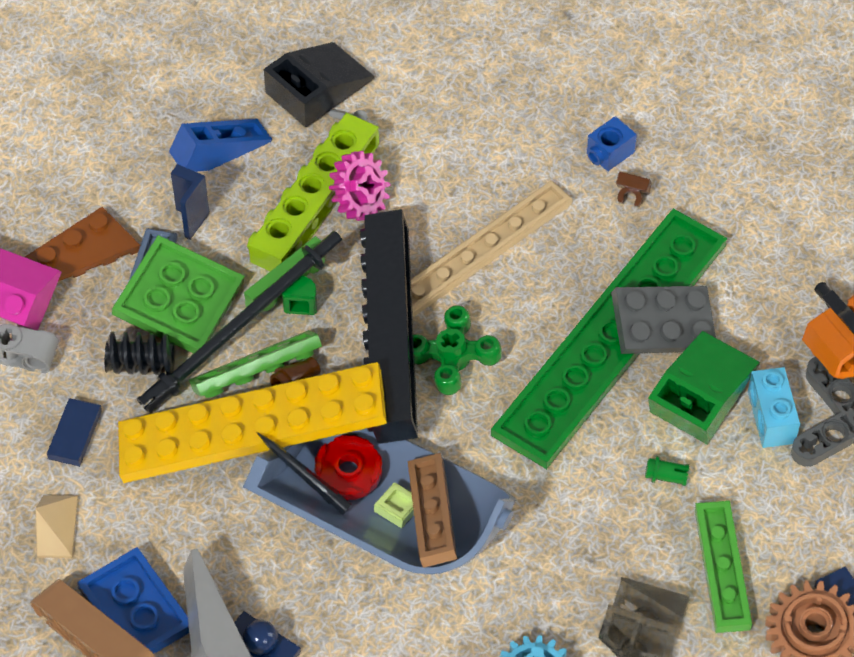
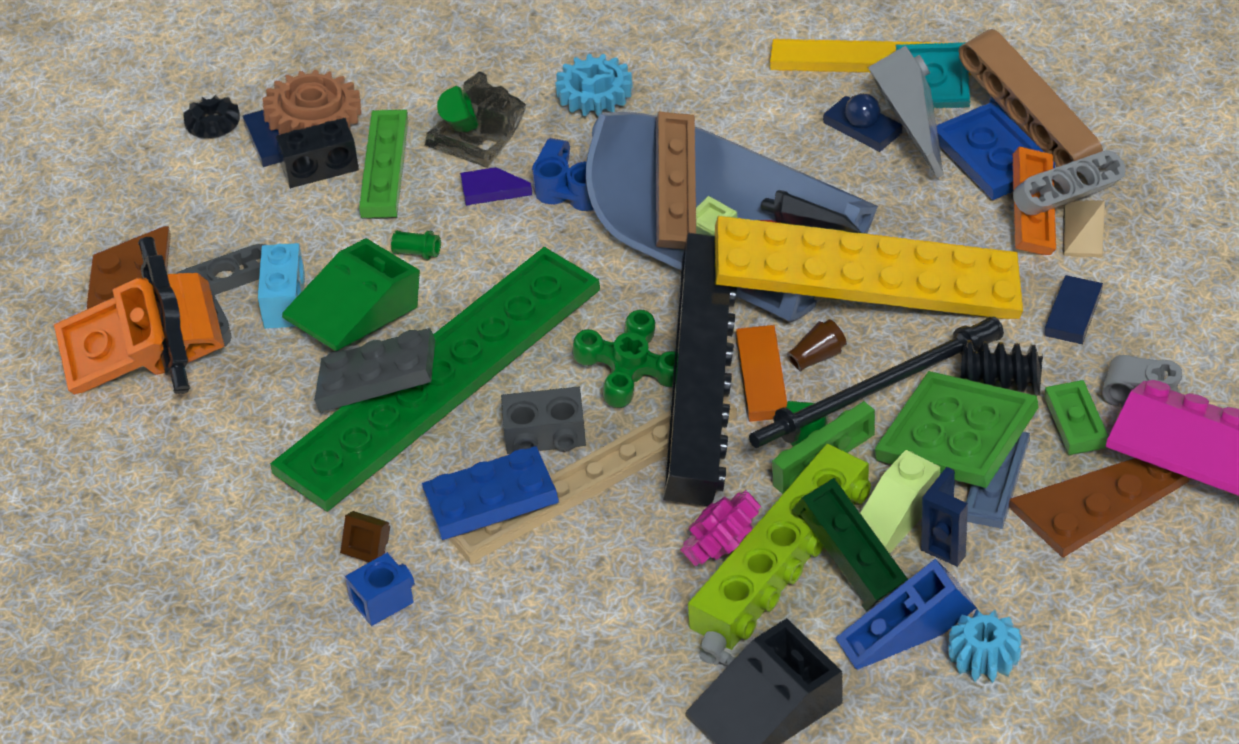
camera: 170 degrees left, 10 degrees down
(65, 543) = (1067, 178): none -> light grey beam
(82, 319) = (1076, 417): none -> bright green plate
(99, 528) = (1037, 231): none -> orange plate
(160, 125) = (984, 645): none -> medium azure gear
(230, 226) = (897, 498): none -> yellowish green slope
(262, 174) = (850, 542): none -> dark green container
(267, 359) = (859, 358): bright green plate -> none
(337, 341) = (761, 371): none -> orange tile
(516, 293) = (543, 419): none -> dark grey brick
(537, 548) = (556, 181): none -> blue piece
(545, 225) = (489, 492): none -> blue plate
(613, 549) = (492, 185): none -> dark purple tile
(660, 603) = (457, 109): none -> green brick
(789, 563) = (317, 152): none -> black brick

